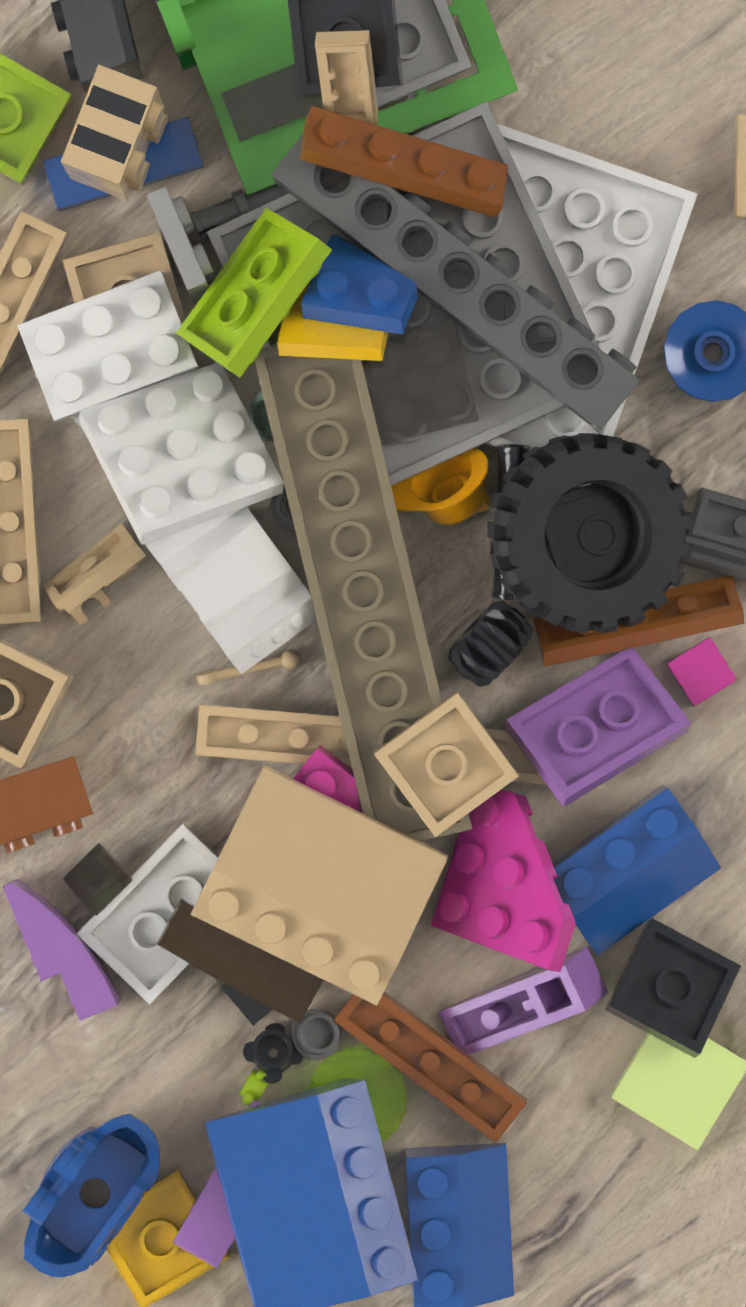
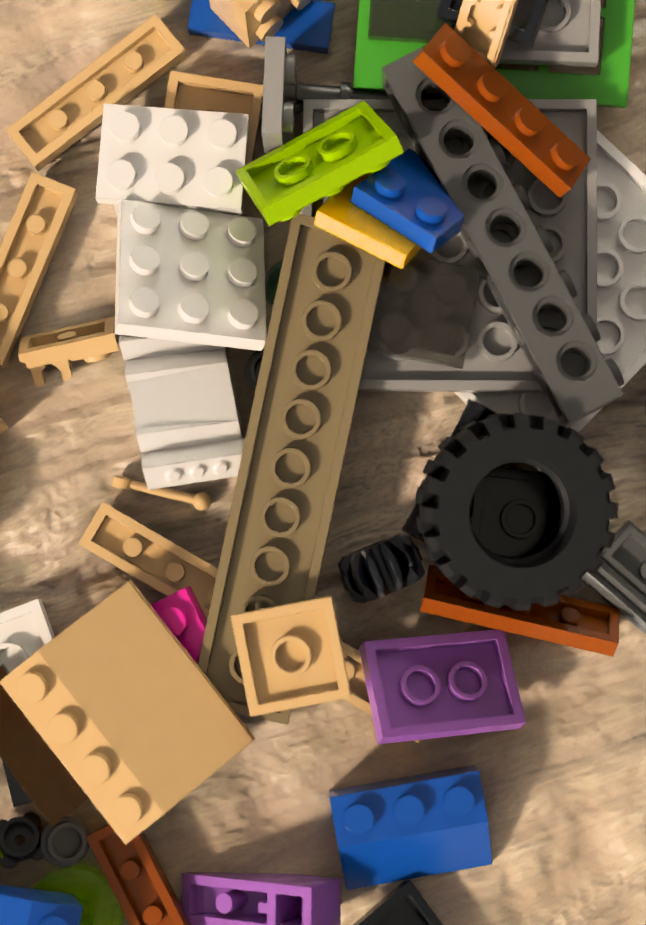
camera: 25 degrees right, 5 degrees down
(447, 491) = (406, 418): light orange piece -> none
(504, 887) = (291, 792): dark pink plate -> none
(701, 671) = (554, 681): dark pink tile -> none

